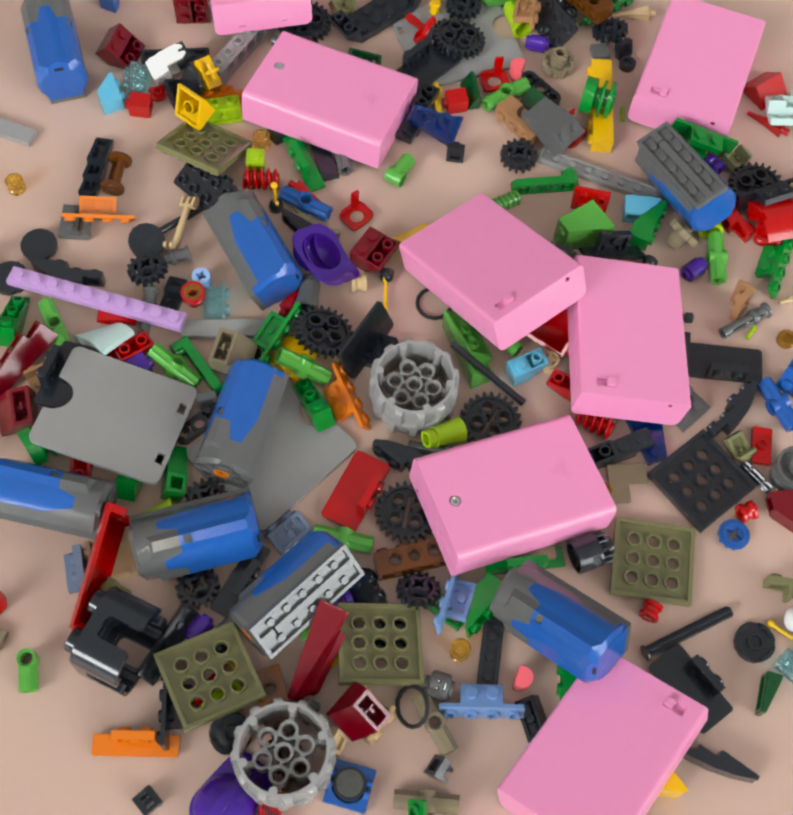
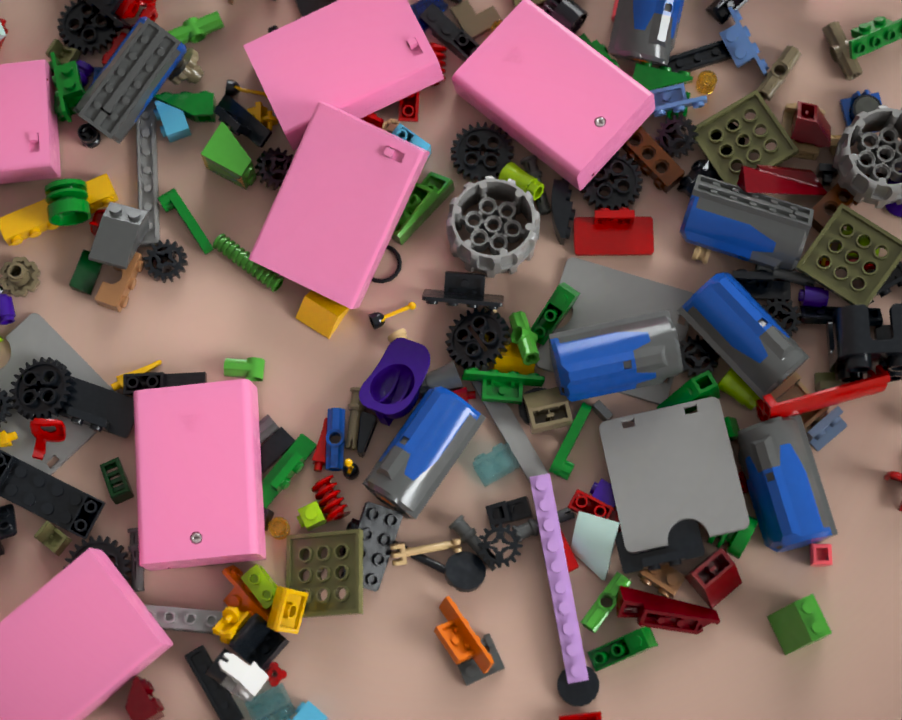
camera: 110 degrees left, 10 degrees up
(39, 244) = (525, 680): black tile -> none
(61, 269) = (547, 636): black slope -> none
(96, 167) = (404, 680): black slope -> none
(113, 184) = (403, 650): reddish brown hose -> none
(139, 104) = (301, 682): red brick -> none
(174, 365) = (586, 459): bright green piece -> none
(191, 297) = (504, 481): red piece -> none
(197, 431) = (615, 396): black beam -> none
(204, 273) = (477, 497): light blue wheel -> none
(222, 732) = (885, 219): black tile -> none
(287, 530) = (685, 273): sand blue bracket -> none
(344, 399) = (531, 290): orange bracket -> none
(353, 541) = (665, 222): bright green piece -> none
(355, 205) = (316, 373): red piece -> none
(373, 250) = (359, 341): dark red slope -> none
(427, 707) = (790, 95): black piece -> none
(436, 124) = (171, 356): clear blue wing -> none
(438, 767) = (811, 54): tile -> none
(439, 685) = (746, 81): dark grey head -> none
(455, 100) = (126, 355): red brick -> none
(455, 152) = (193, 324): black tile -> none
(472, 91) = (104, 347): dark green slope -> none
(489, 374) = (440, 171): black piece -> none
(497, 72) = (64, 327): red piece -> none
(515, 88) = (82, 303): bright green piece -> none
(516, 68) = (52, 313): coral brick -> none
(523, 679) = (703, 22): coral brick -> none
(539, 82) = (53, 291): black beam -> none
(583, 195) = (186, 170): red bracket -> none
(693, 269) = (218, 45): dark purple brick -> none

